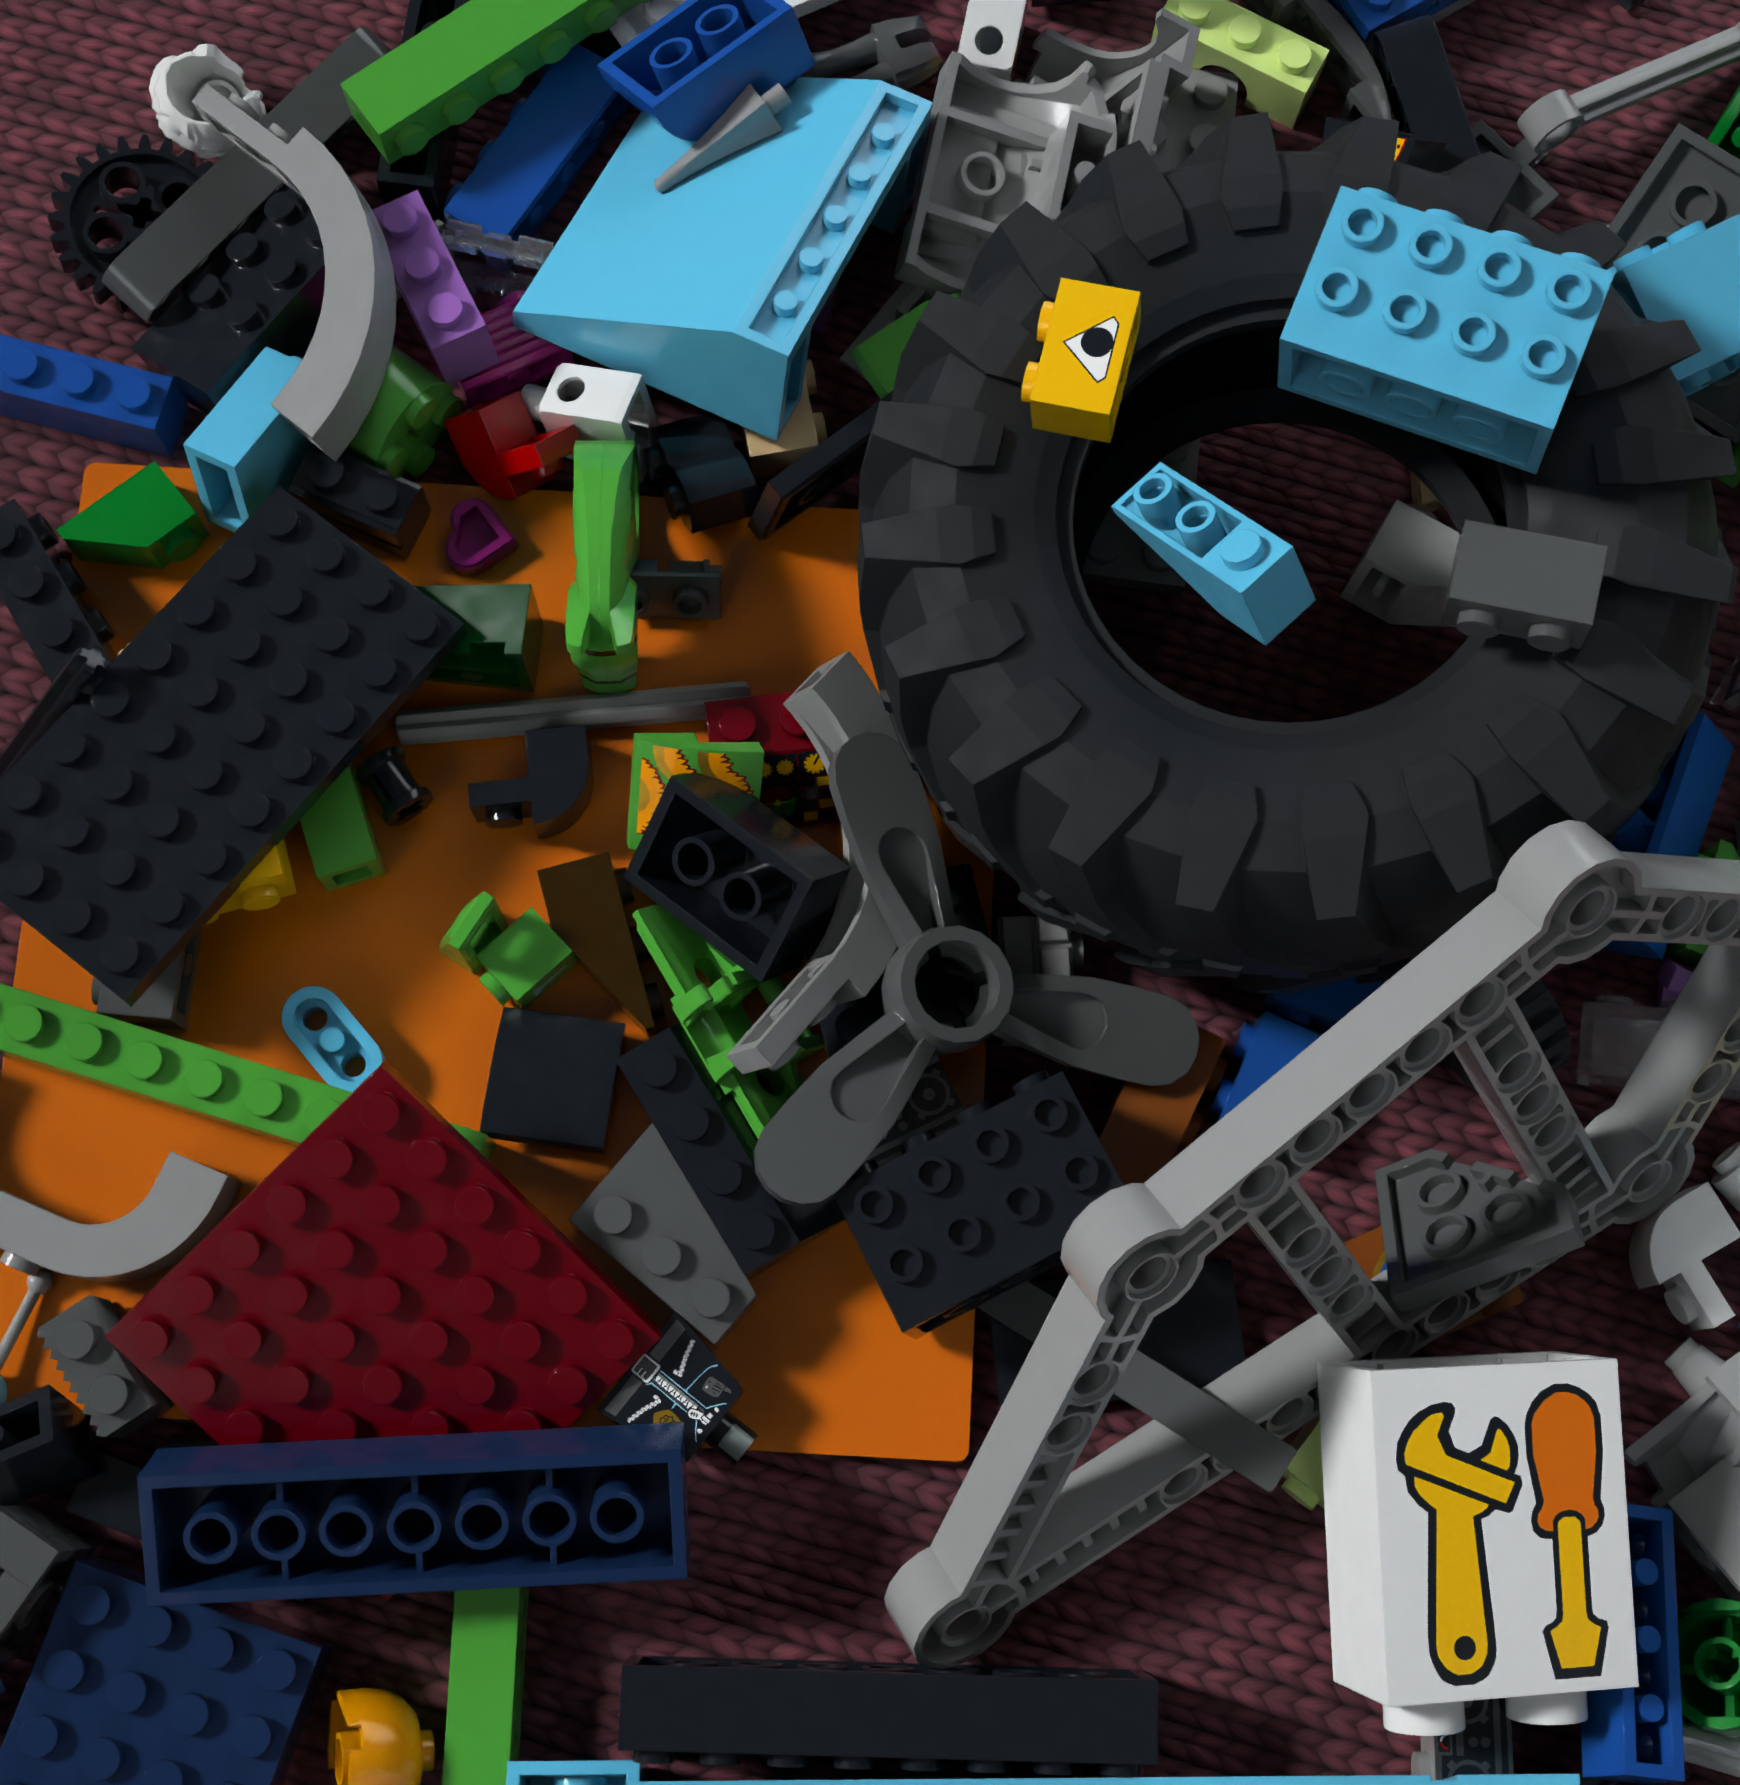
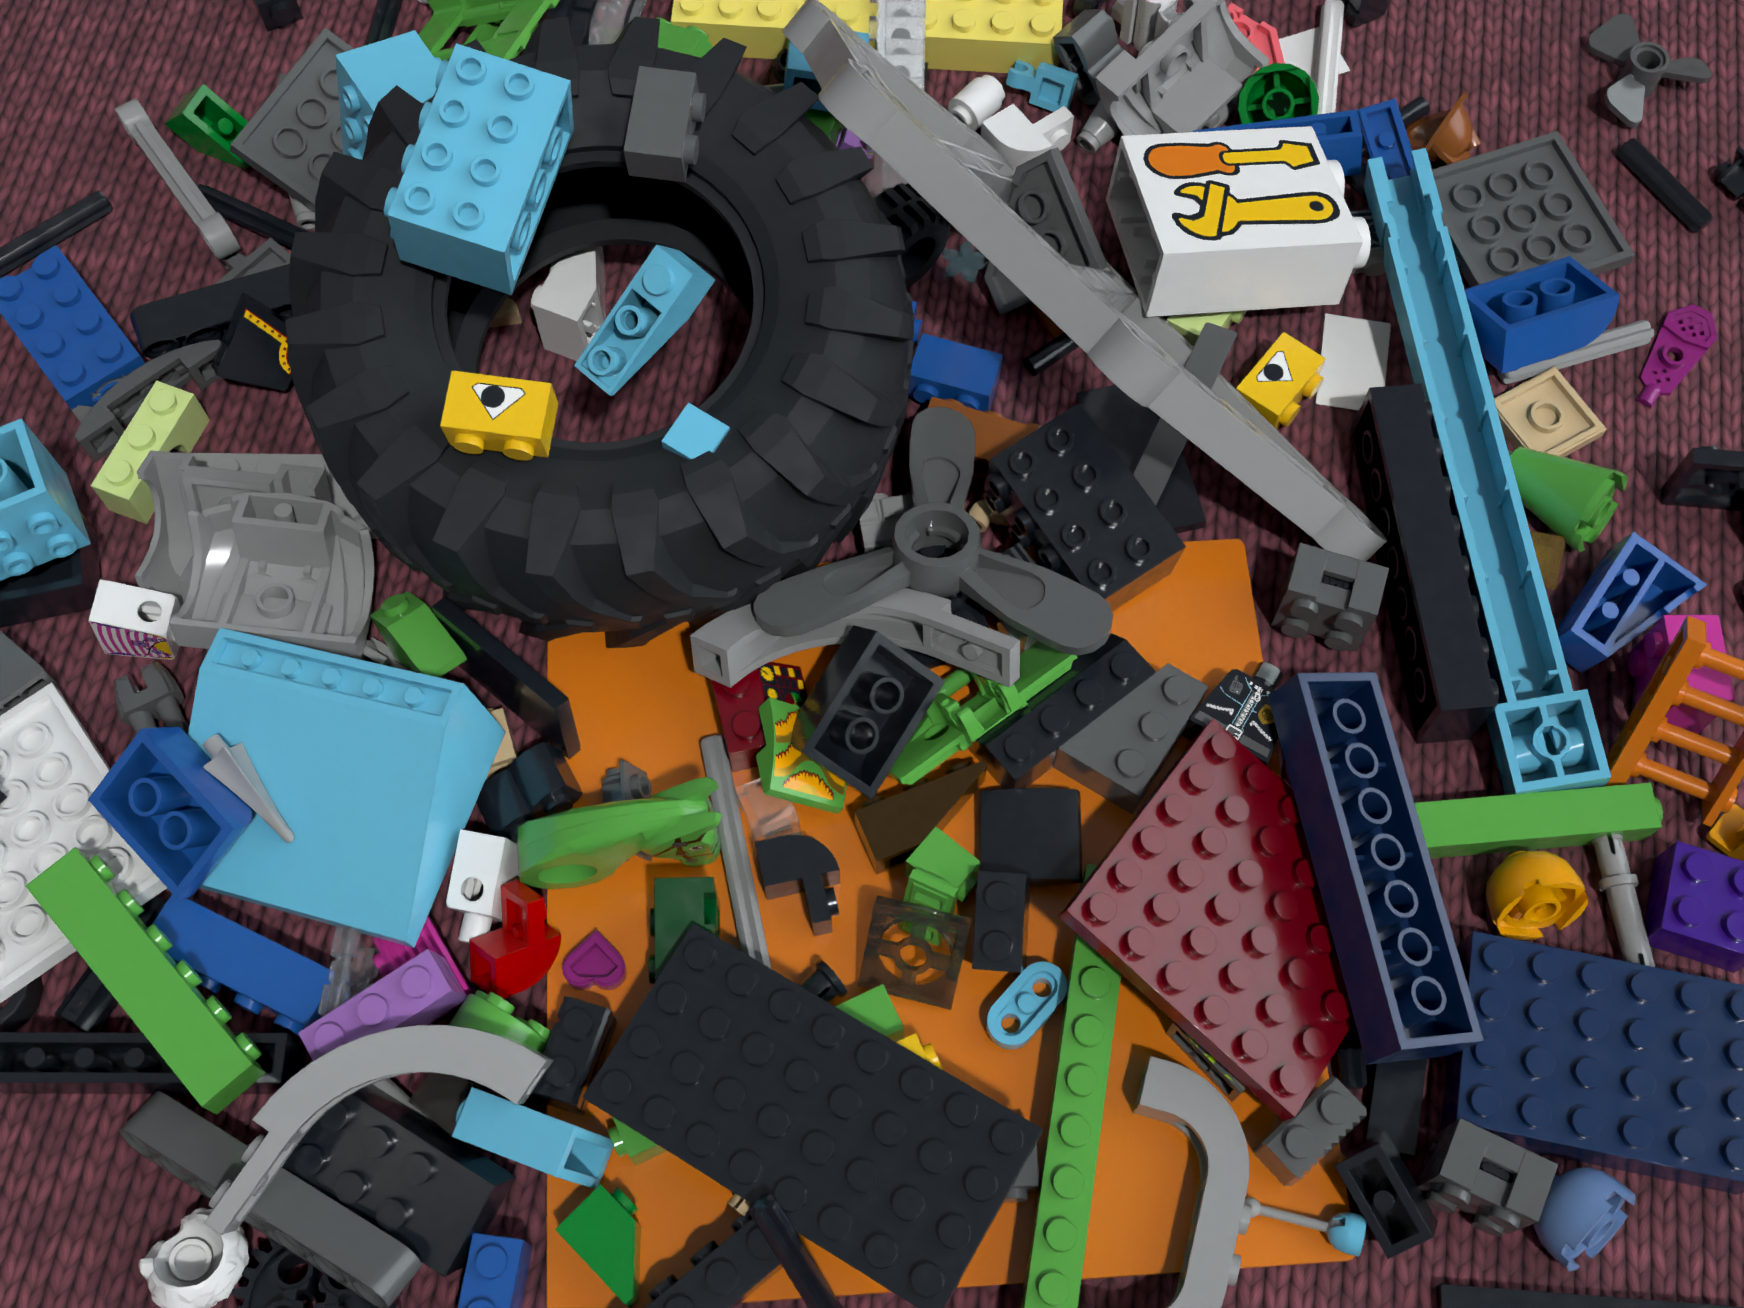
camera: 90 degrees left, 10 degrees down
(406, 870) = (934, 992): none -> clear smoke piece
(434, 1017) = (1001, 921): none -> black brick
(615, 746) = (765, 814): none -> clear panel
(842, 1558) = (1329, 597): none -> dark grey piece
(1055, 620) = (694, 433): none -> medium azure tile
(1216, 1567) = (1282, 380): none -> yellow brick
(1256, 1702) = (1354, 360): none -> white sticker
(1472, 1133) = (964, 261): none -> clear light blue plant
(1605, 168) = (250, 216): none -> black axle

